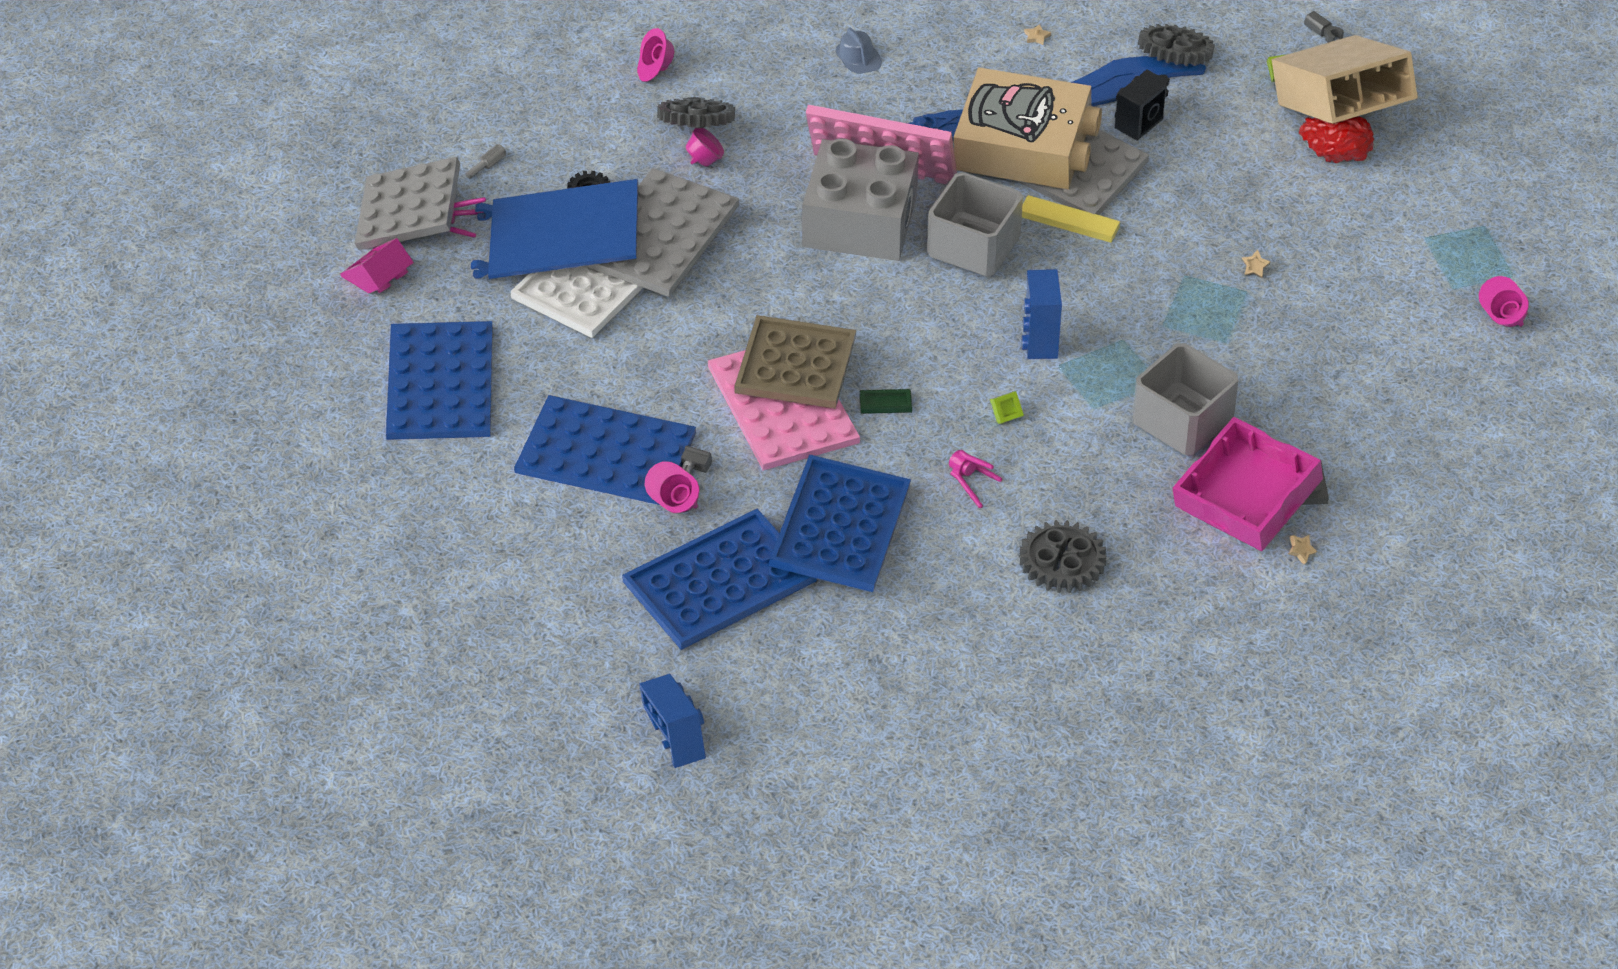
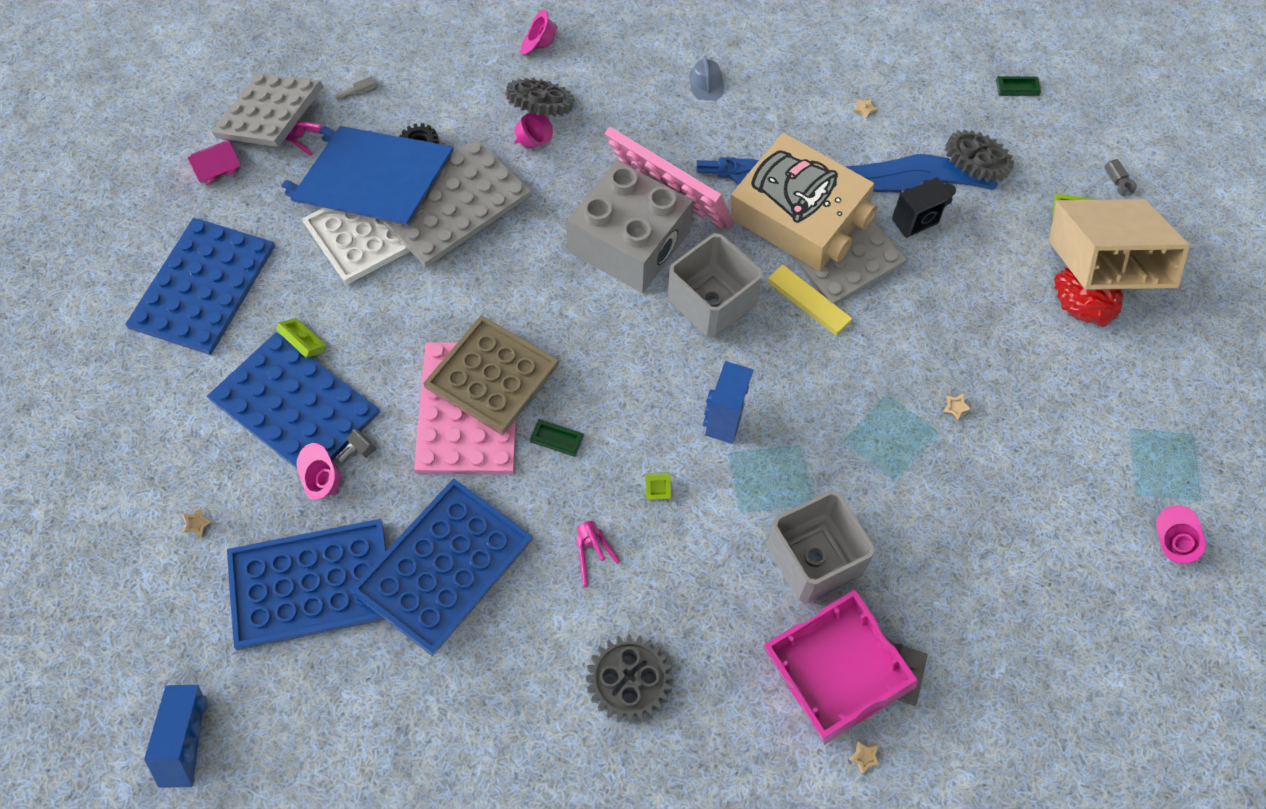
camera: 20 degrees right, 15 degrees up
(569, 390) = (301, 337): none -> lime plate
(574, 567) = (195, 522): none -> tan piece

